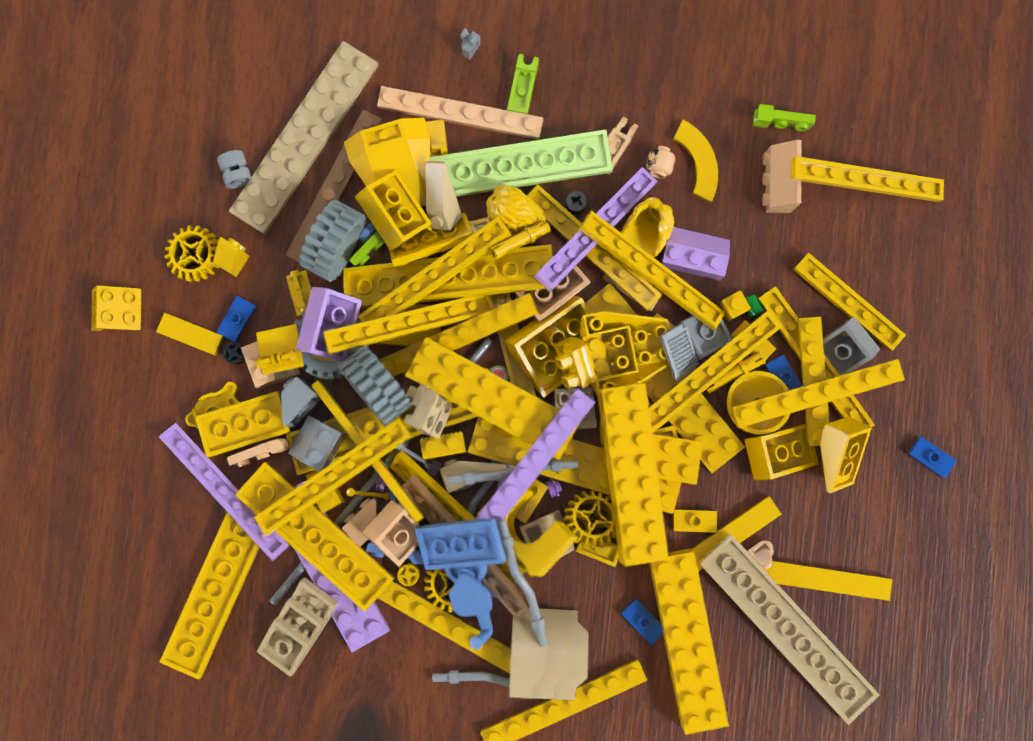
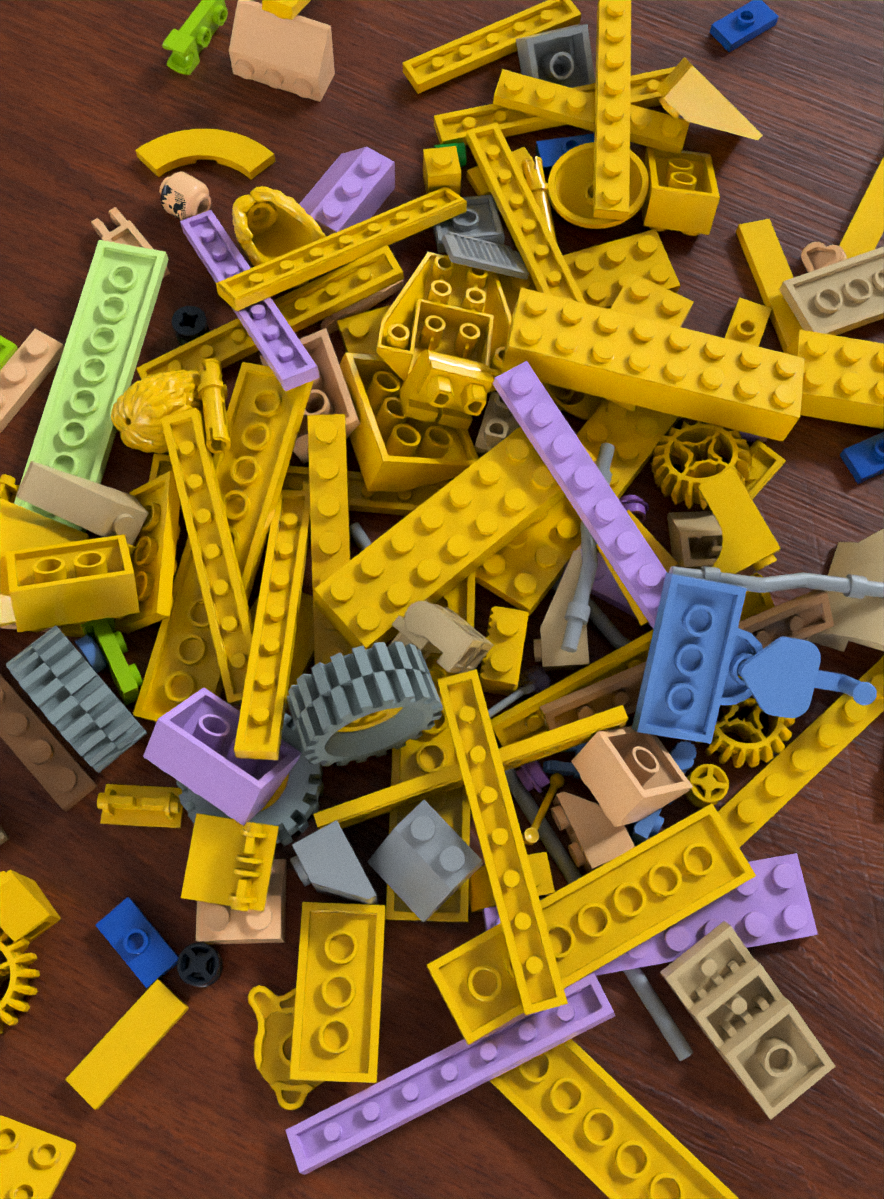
camera: 75 degrees left, 15 degrees down
(260, 452) = (401, 976): light nougat hinge -> none

